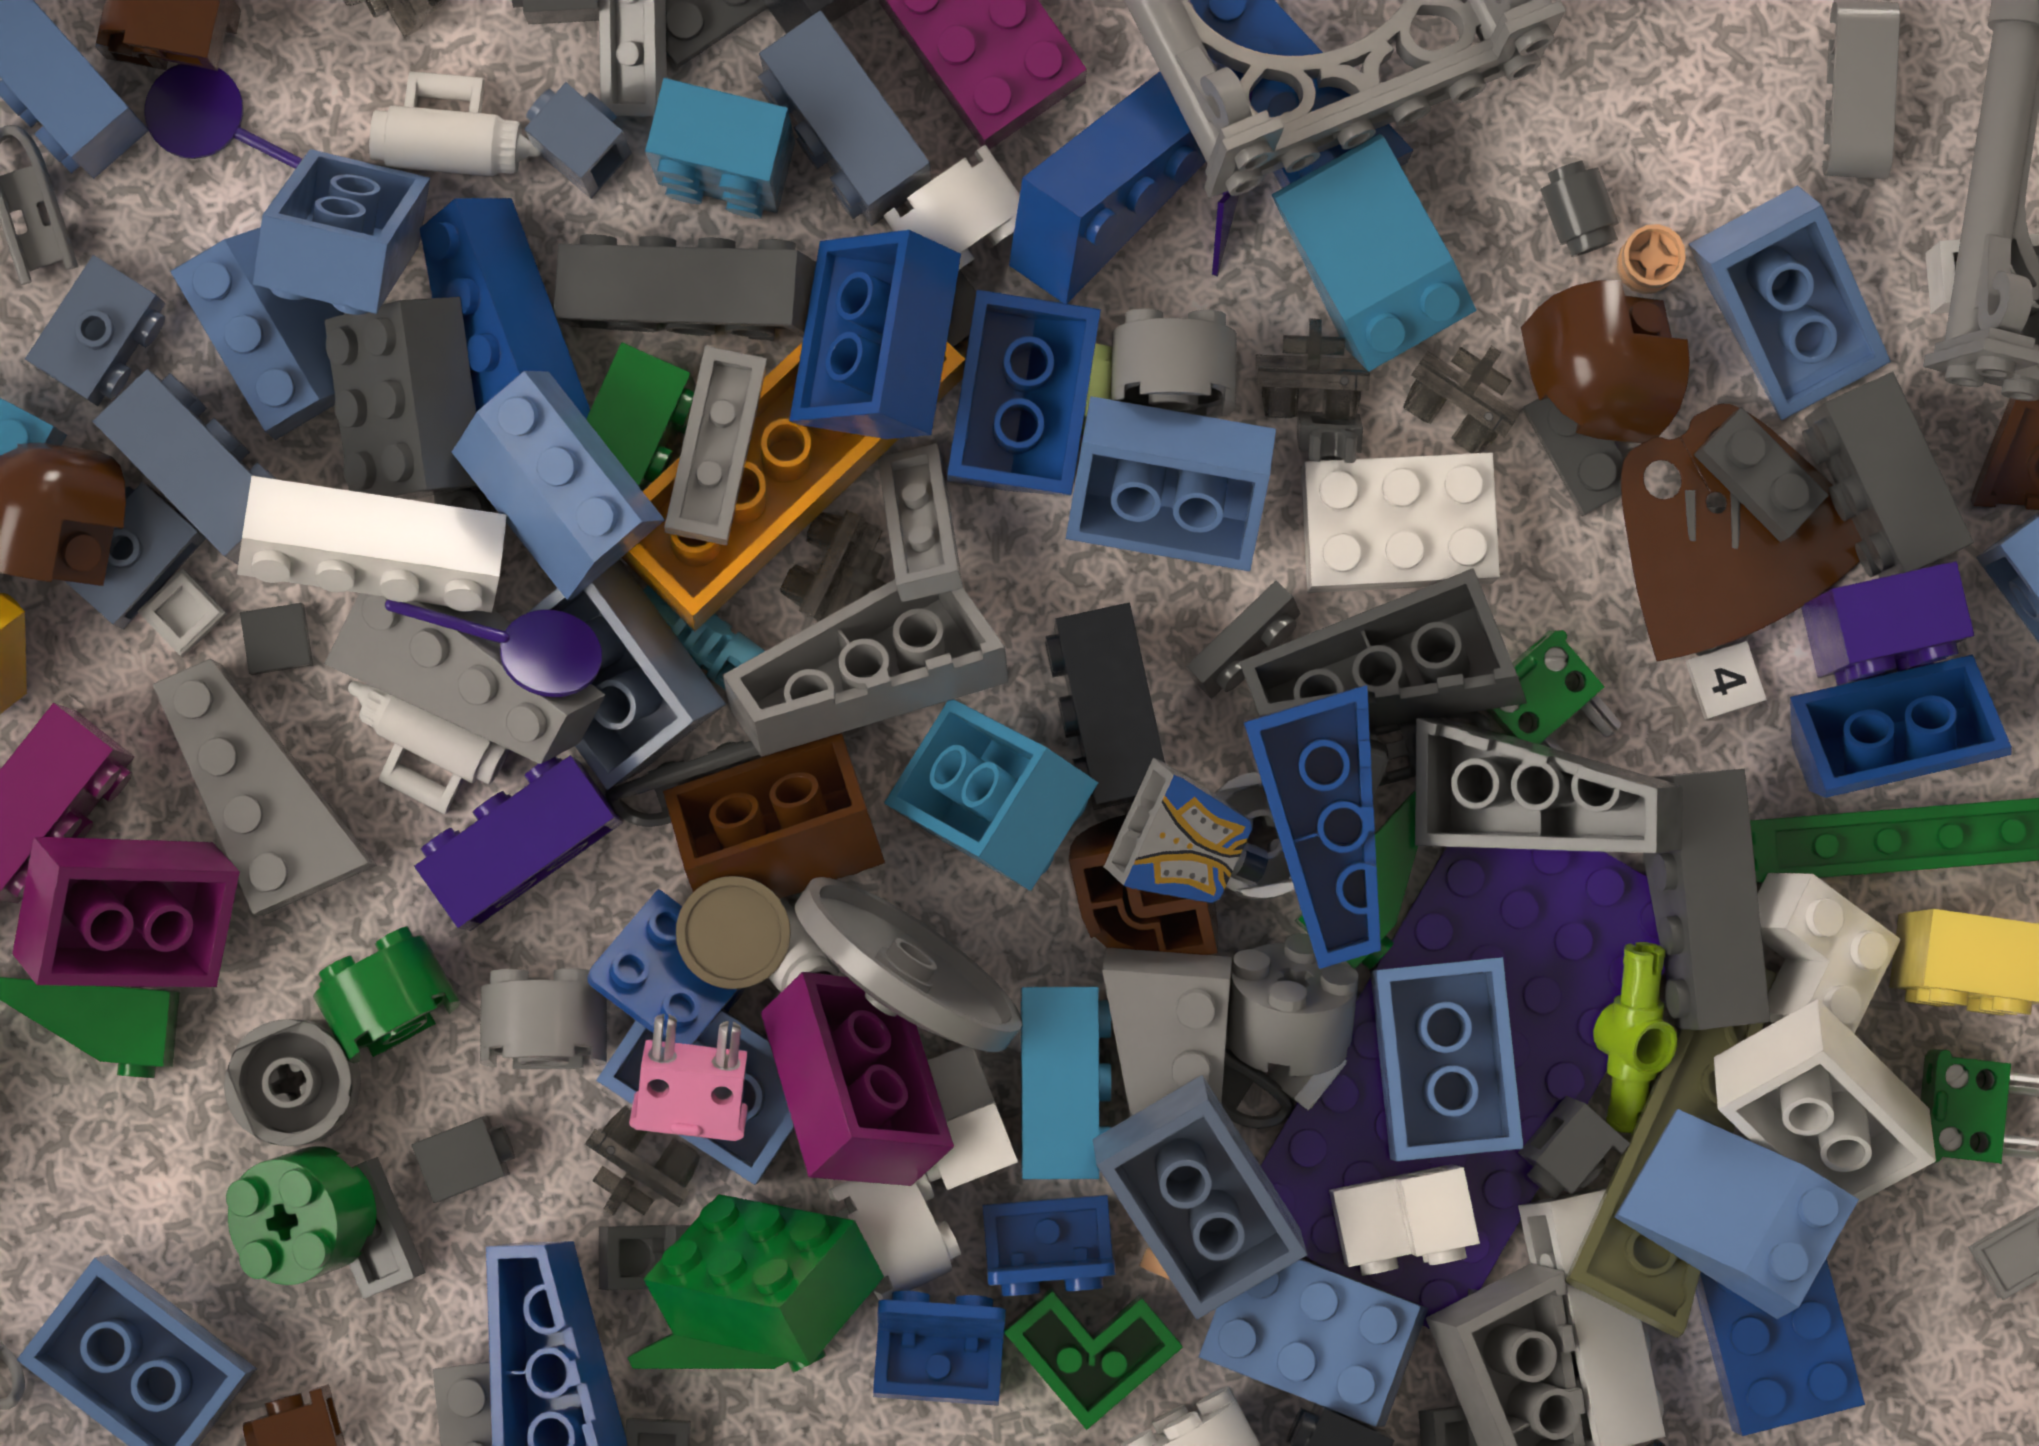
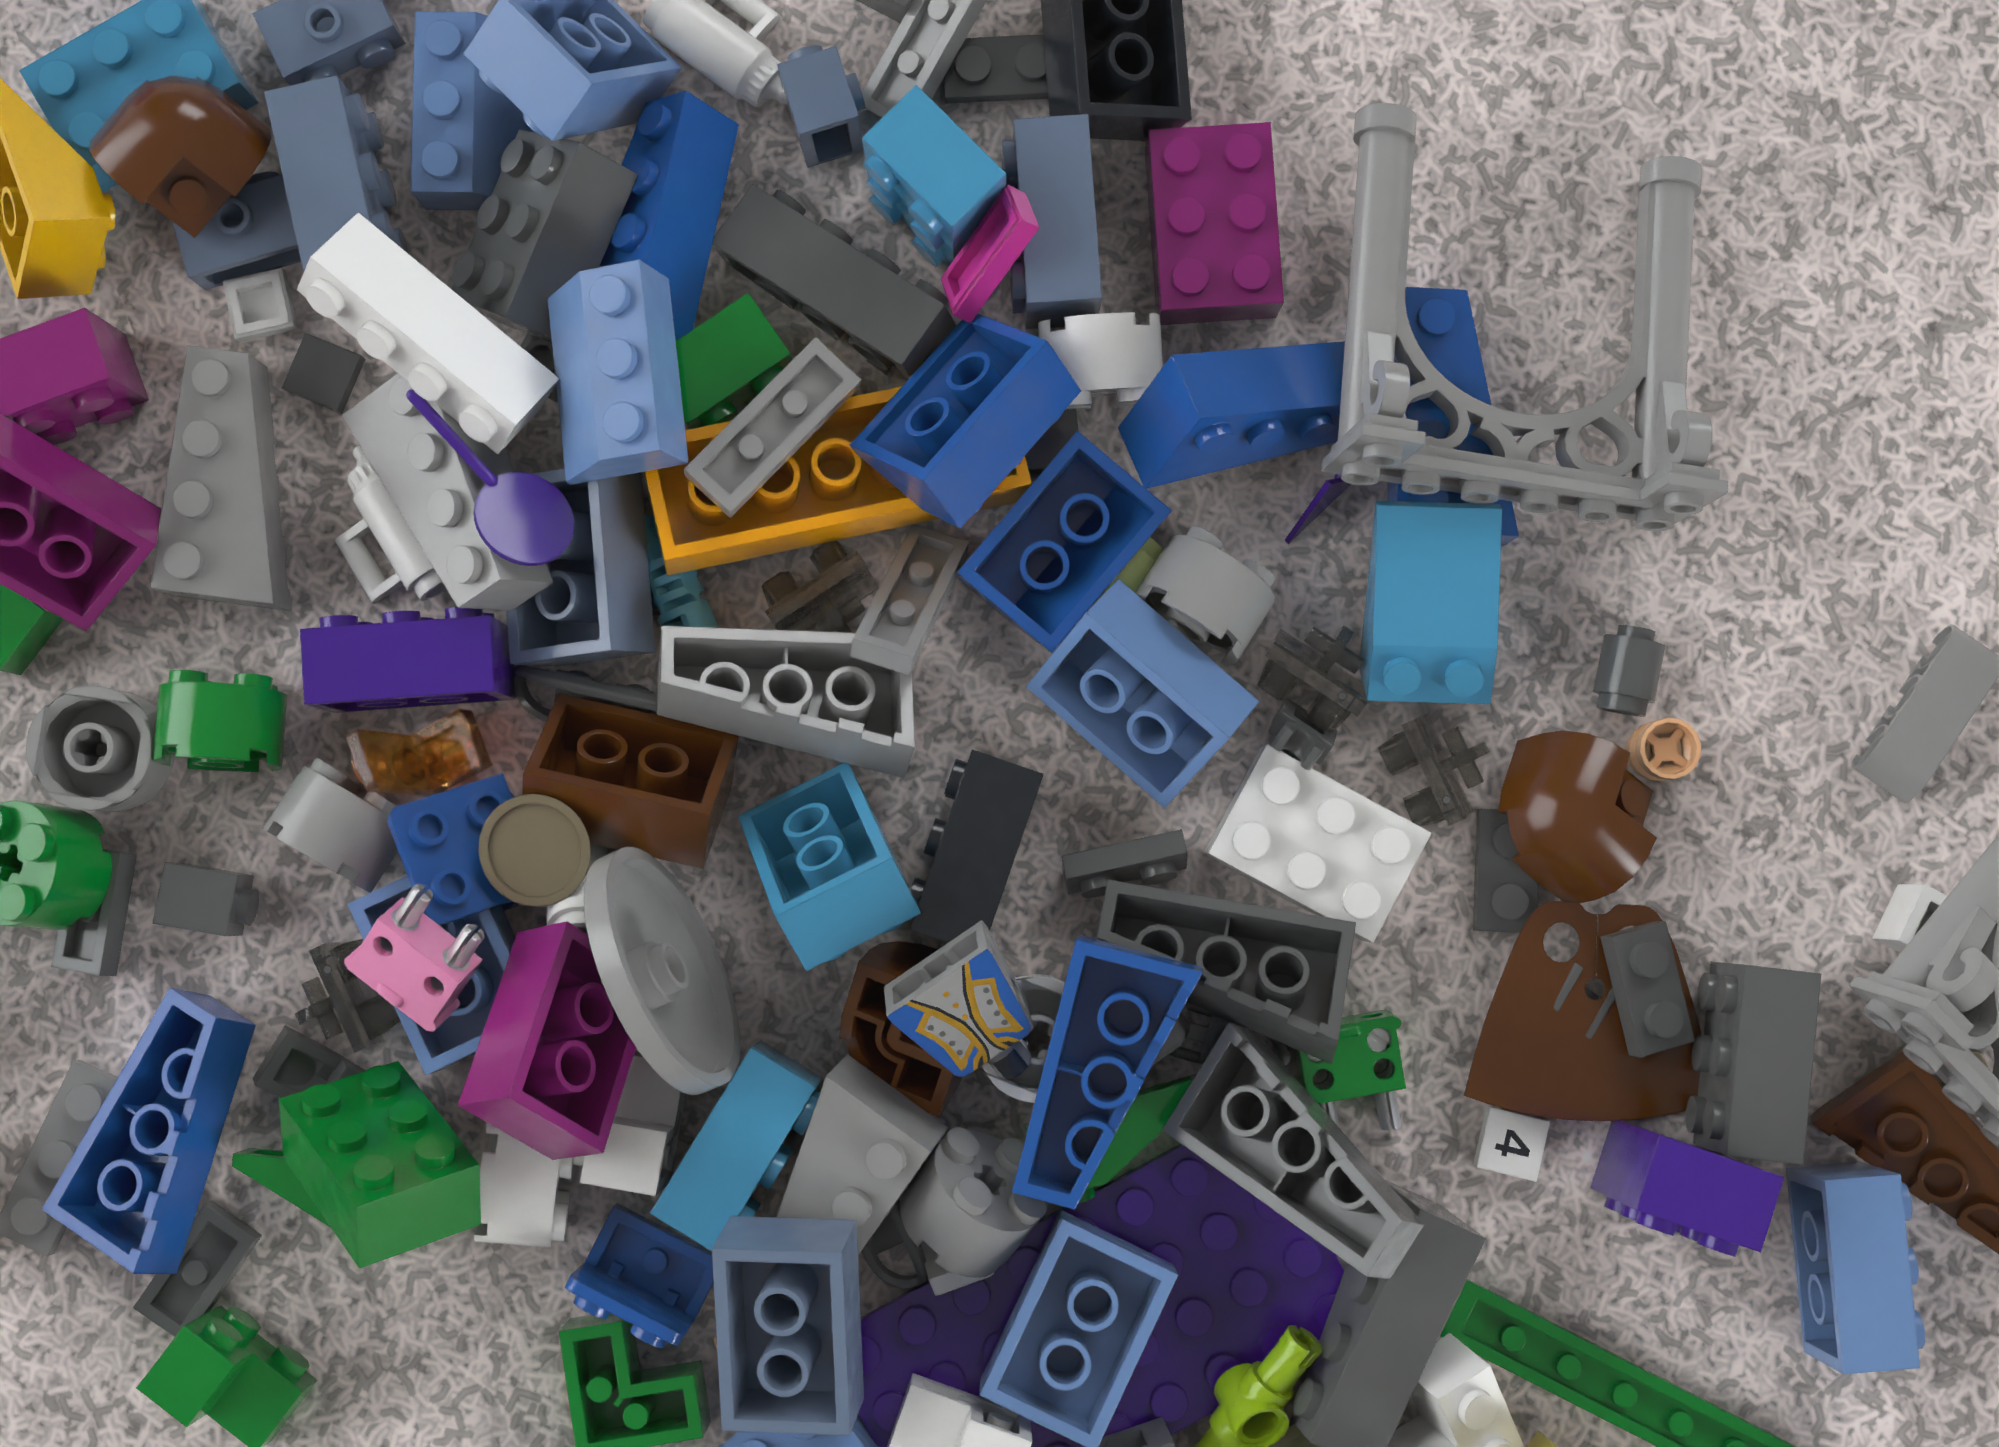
camera: 30 degrees right, 0 degrees up
(581, 917) = (423, 761): none -> clear orange bracket
(809, 182) = (989, 253): none -> dark pink tile
(939, 1349) = (498, 1311): blue bracket -> none
(1791, 300) = (1761, 855): medium blue slope -> none
(1895, 727) = (1634, 1280): blue slope -> none

